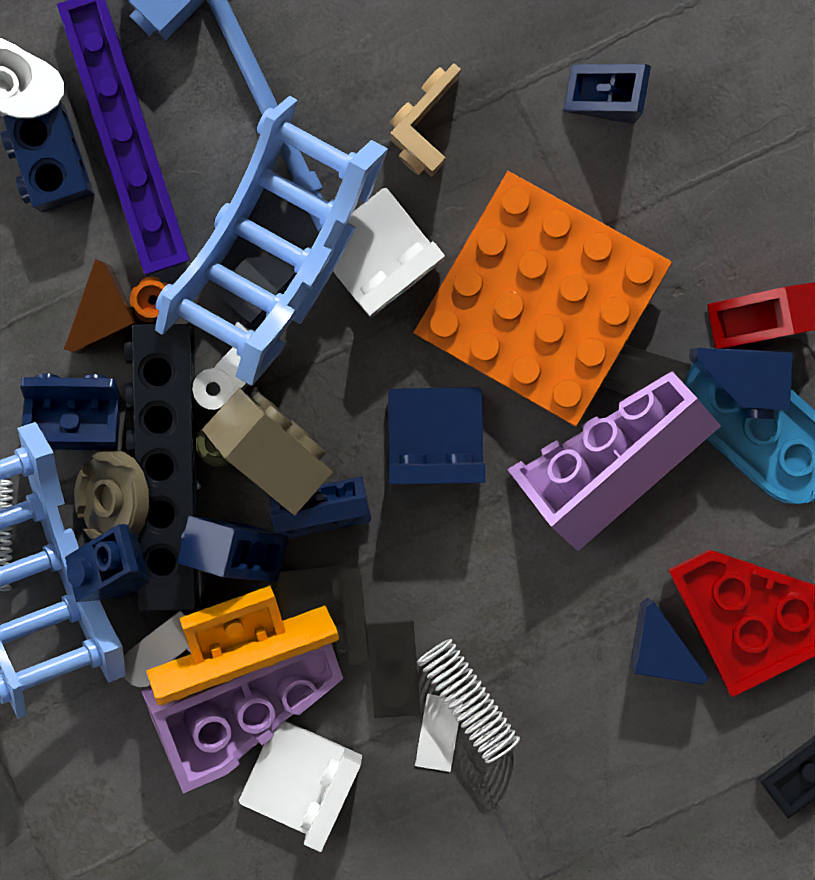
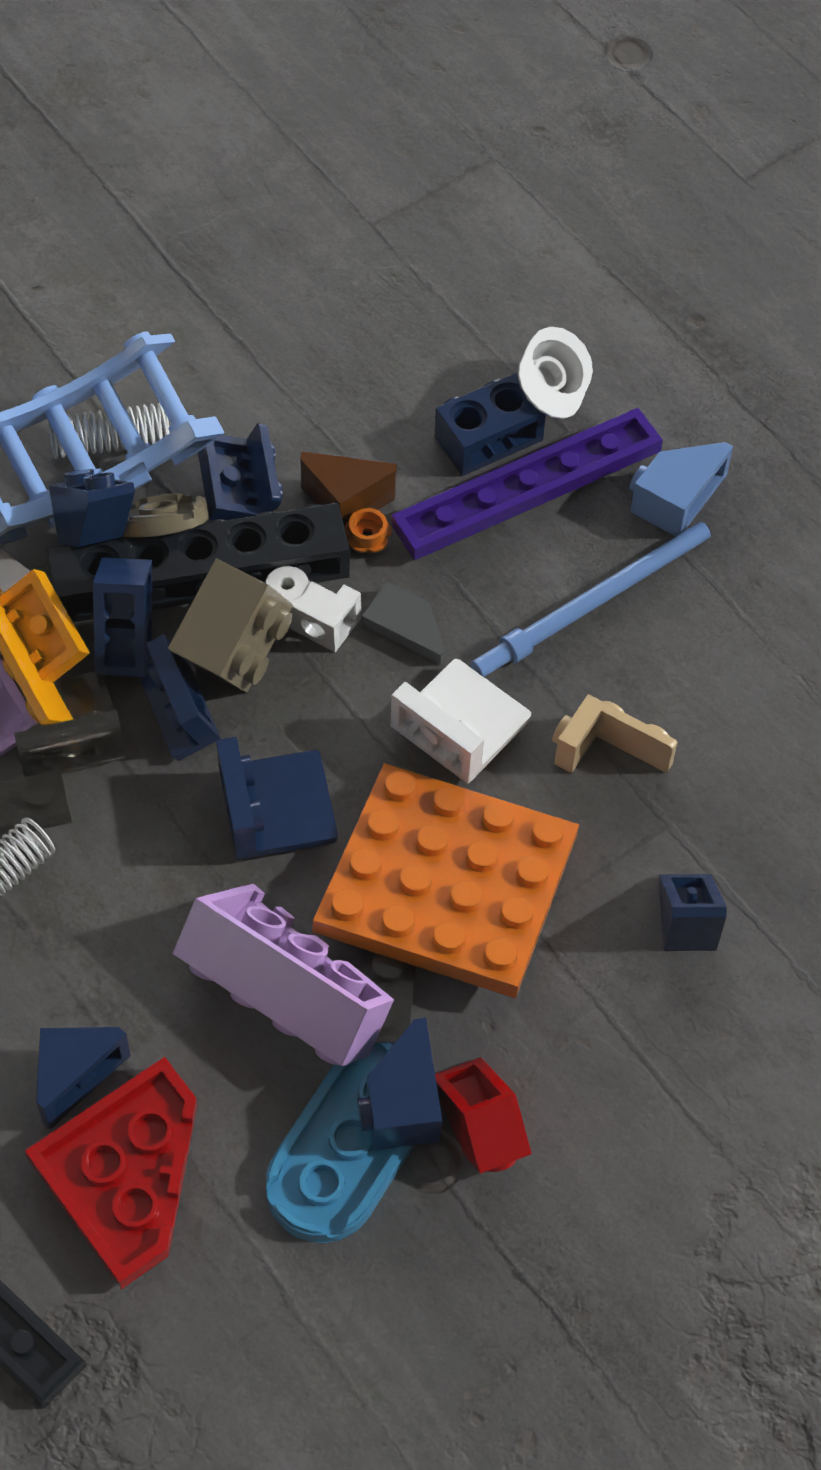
camera: 80 degrees right, 30 degrees down
(312, 265) = (435, 651): light blue fence -> none

